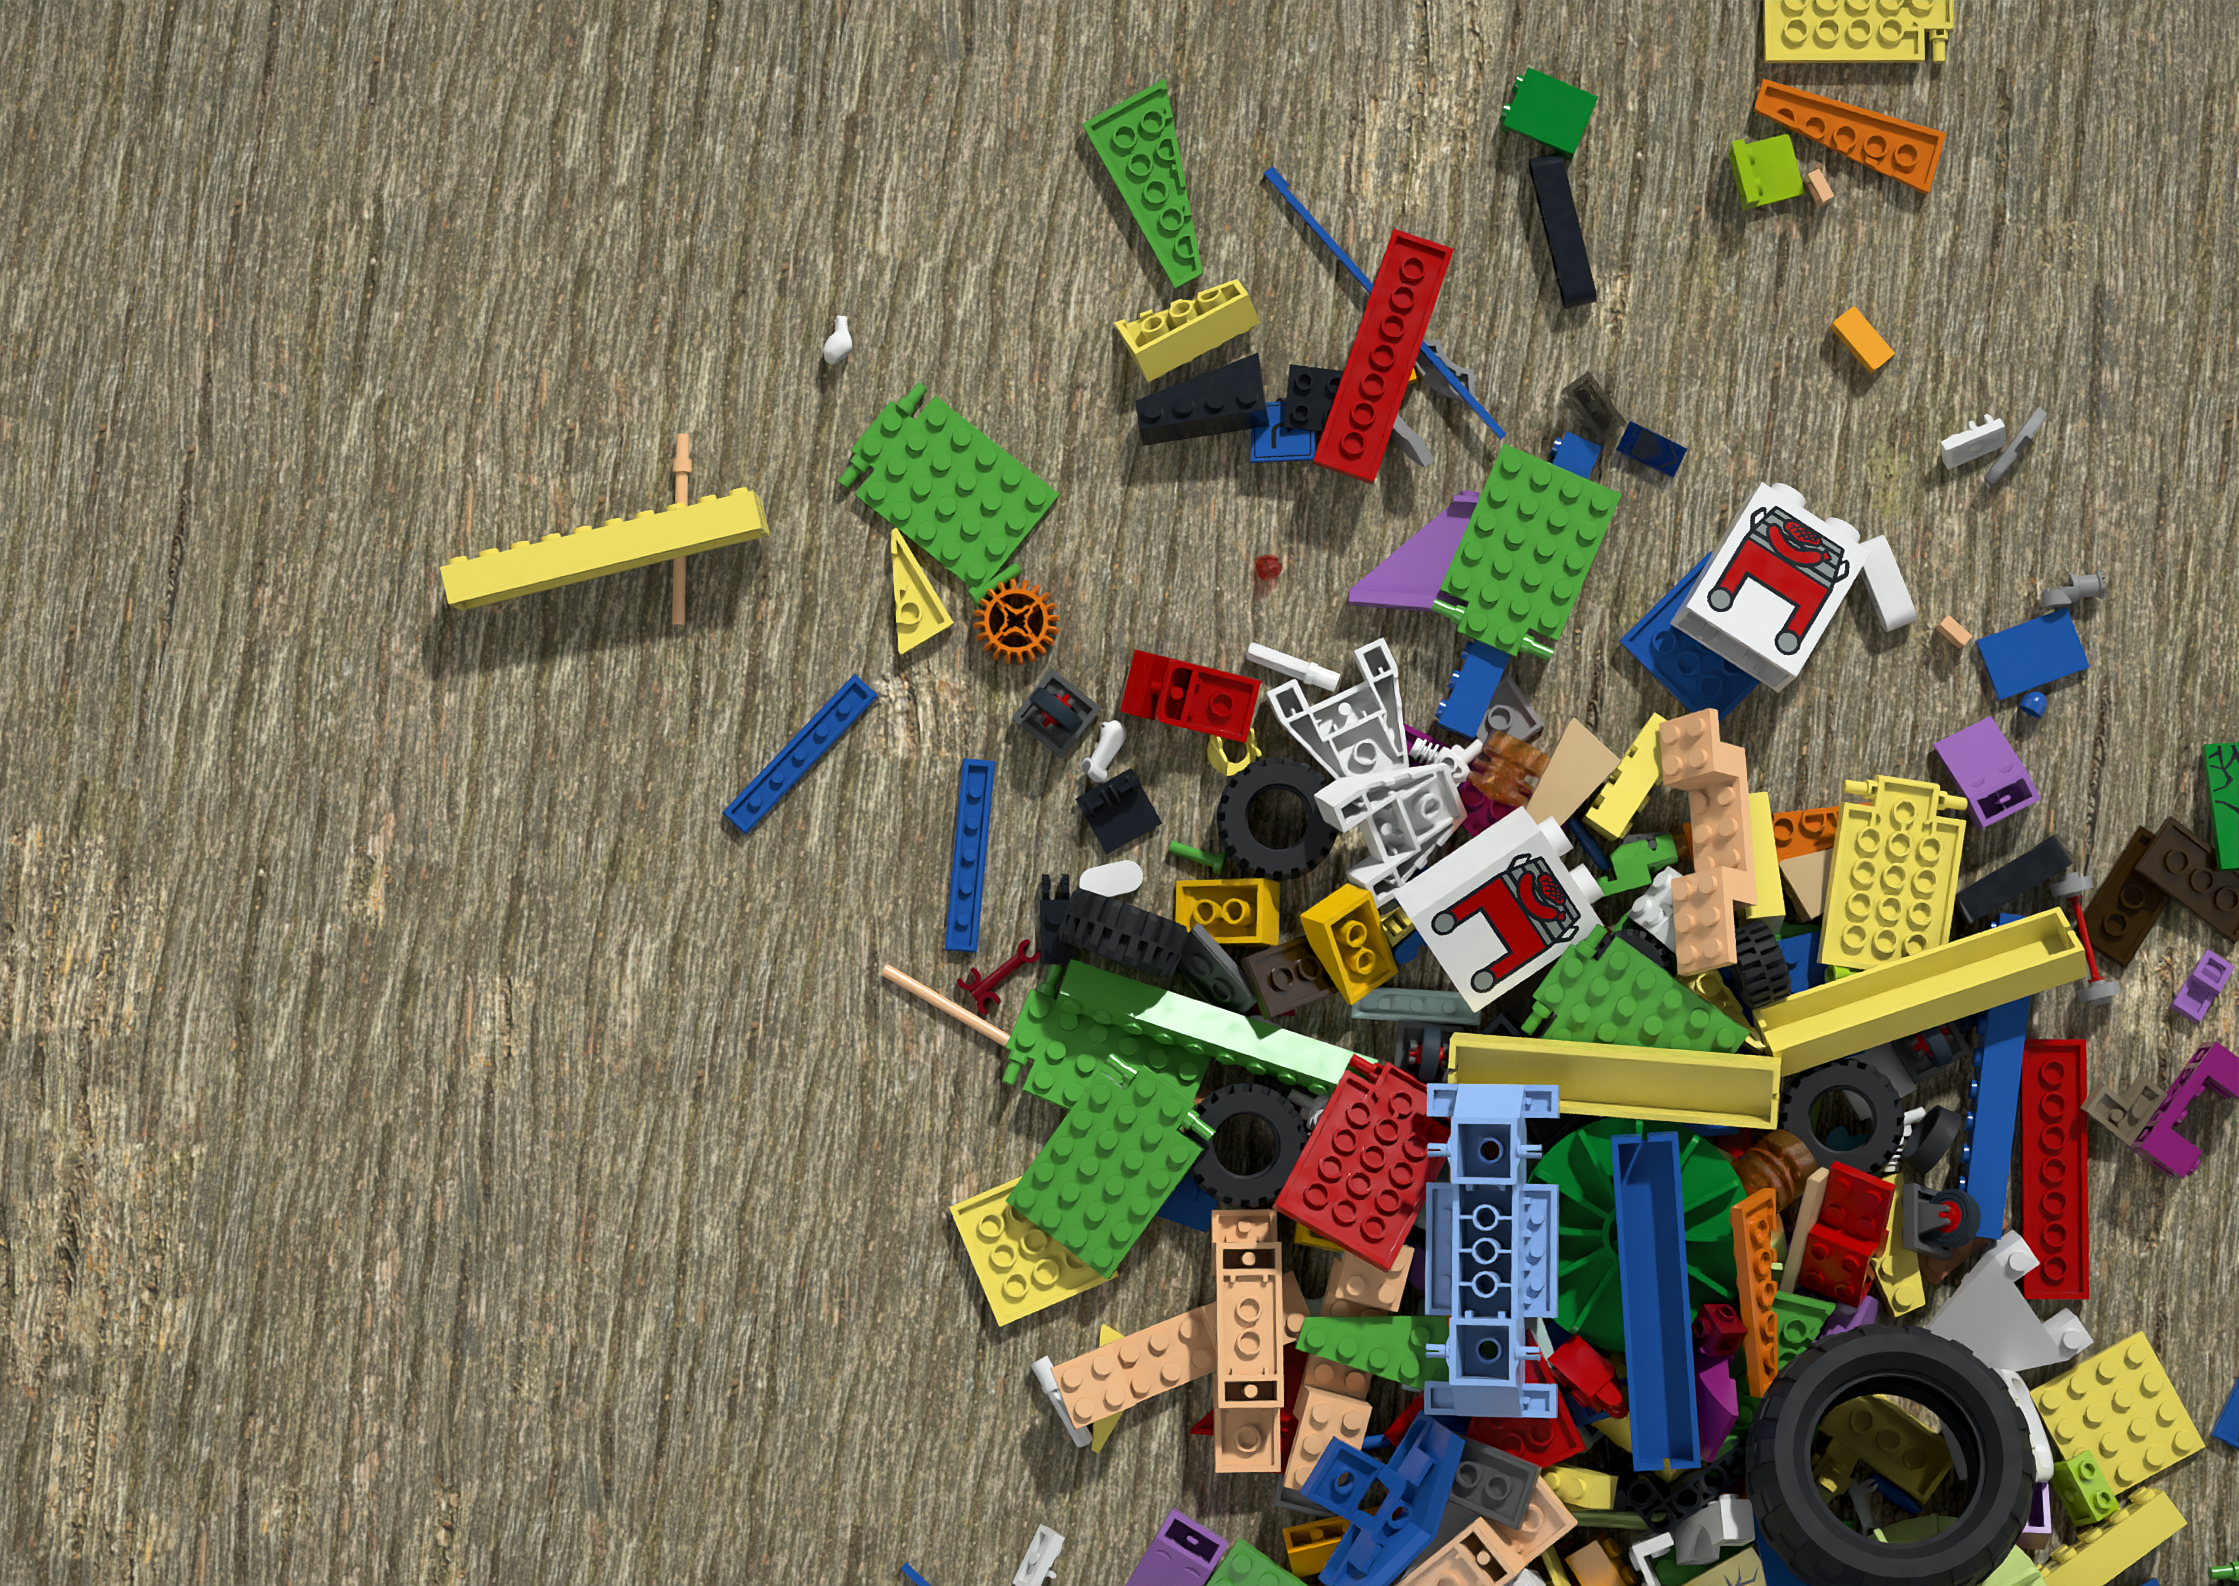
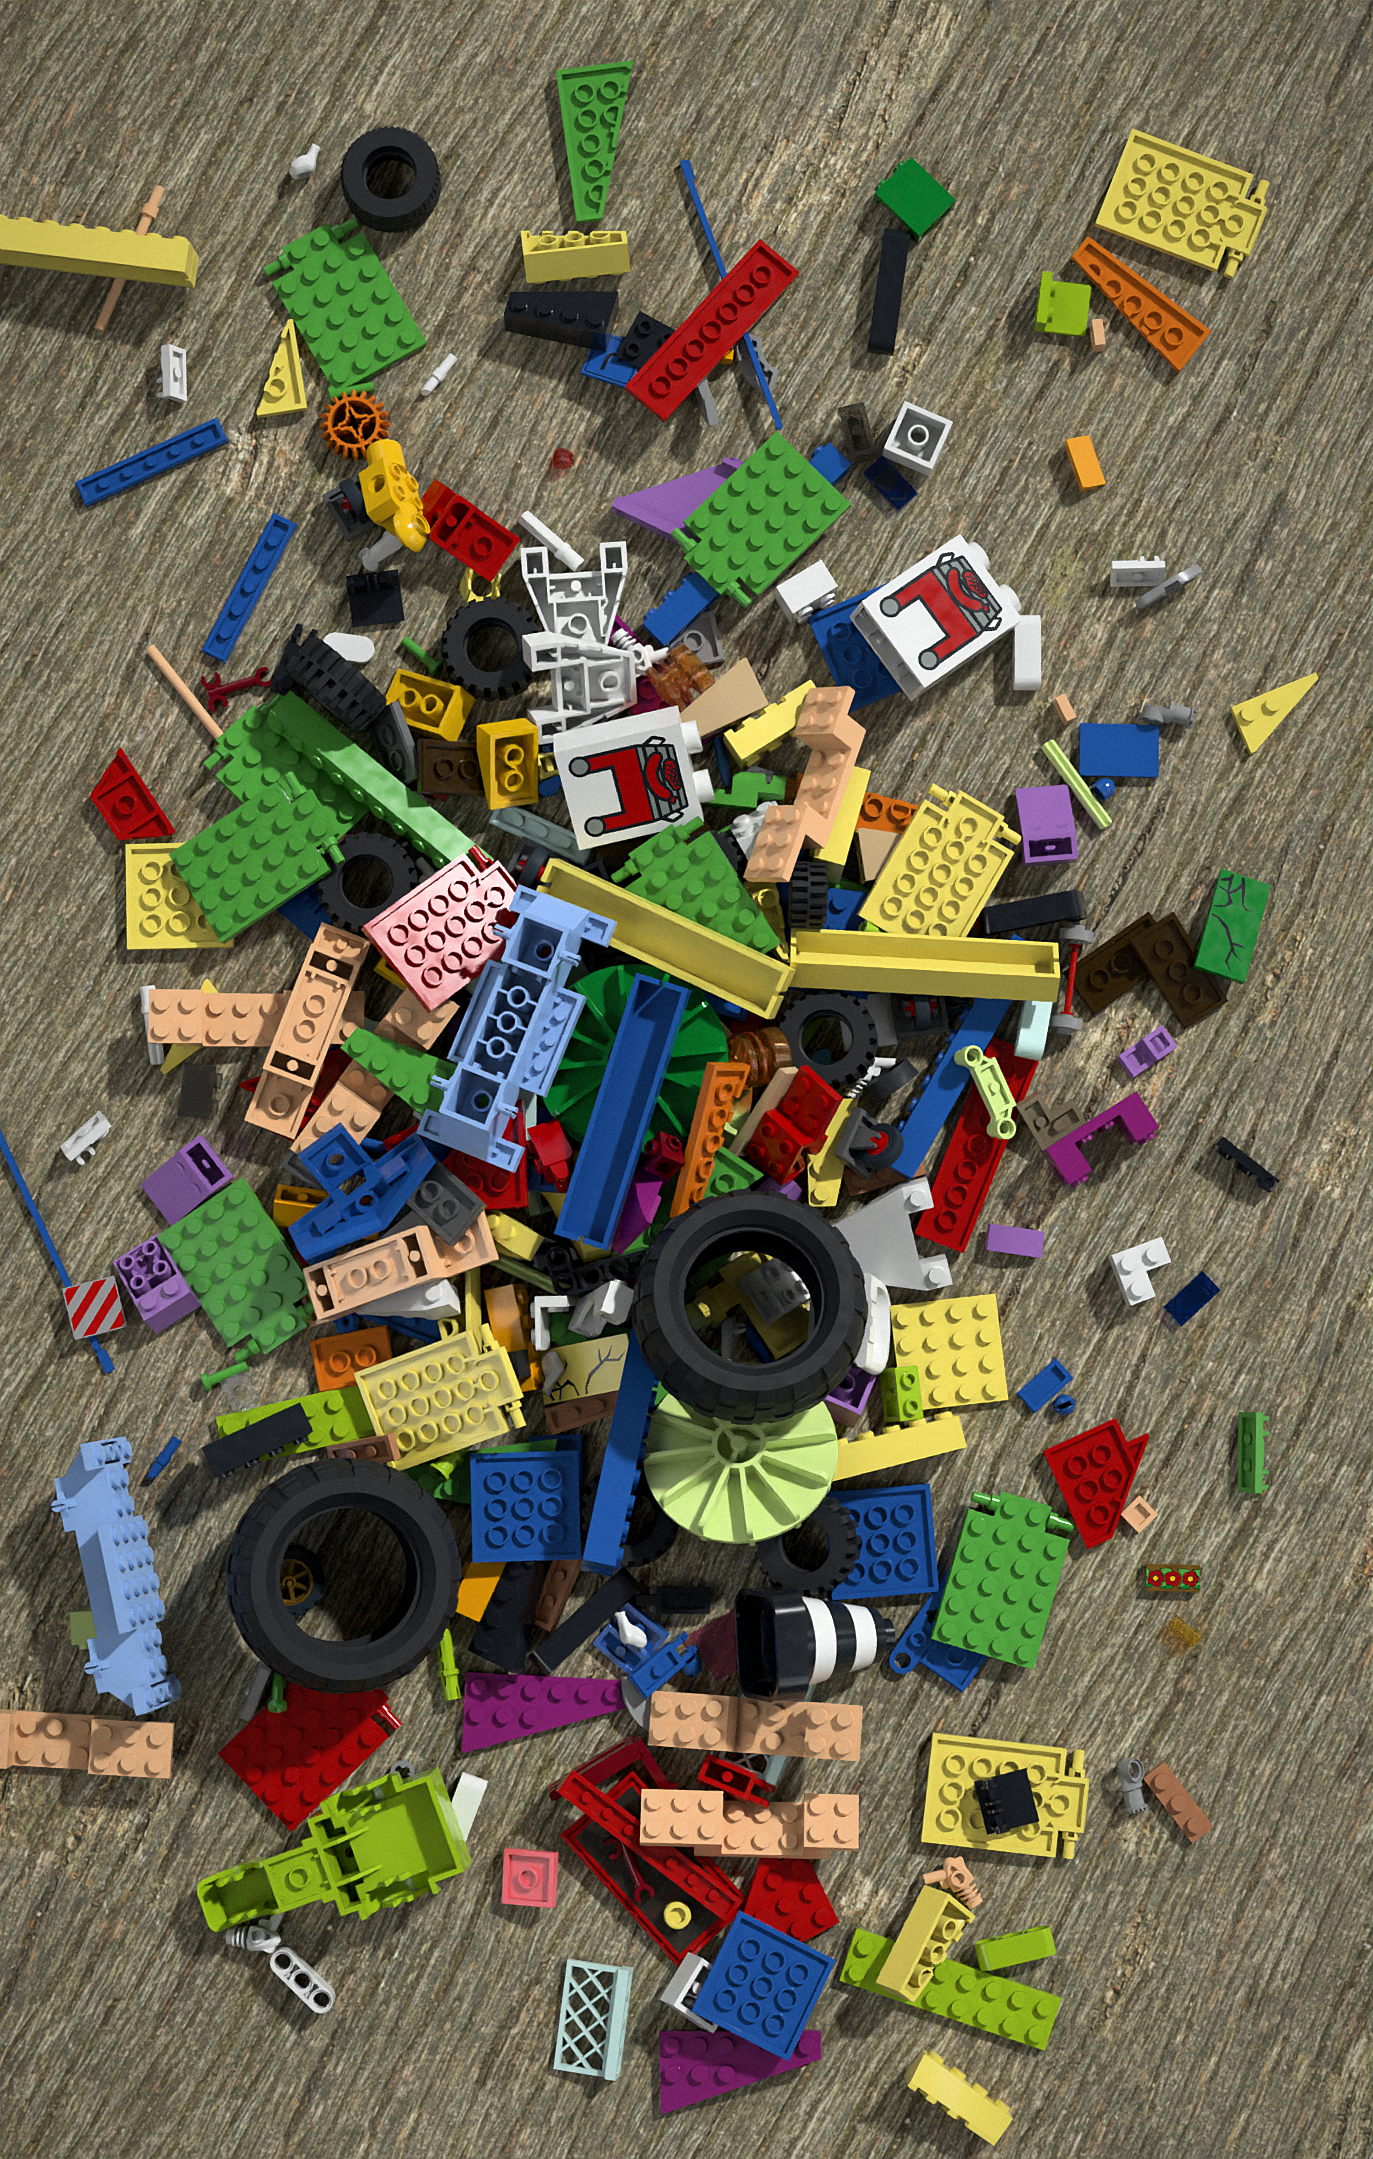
camera: 15 degrees right, 0 degrees up
(785, 640) = (174, 373): none -> white plate
(930, 283) = (390, 145): none -> black tyre
(932, 1157) = (129, 803): none -> red wing
(1087, 525) = (438, 374): none -> white piece
(1098, 689) = (393, 495): none -> yellow brick
(1147, 1458) = (199, 1091): none -> clear smoke brick
(1609, 614) = (806, 592): none -> white brick
(1664, 387) = (917, 438): none -> white brick
(1893, 1428) = (774, 1289): none -> white bracket
(2000, 711) = (1076, 784): none -> yellowish green axle
(2050, 1102) = (992, 1089): none -> yellowish green plate
(2066, 1017) = (1032, 1029): none -> light aqua beam
(2139, 1262) = (1014, 1240): none -> medium lavender slope
(2179, 547) = (1262, 714): none -> light yellow wing

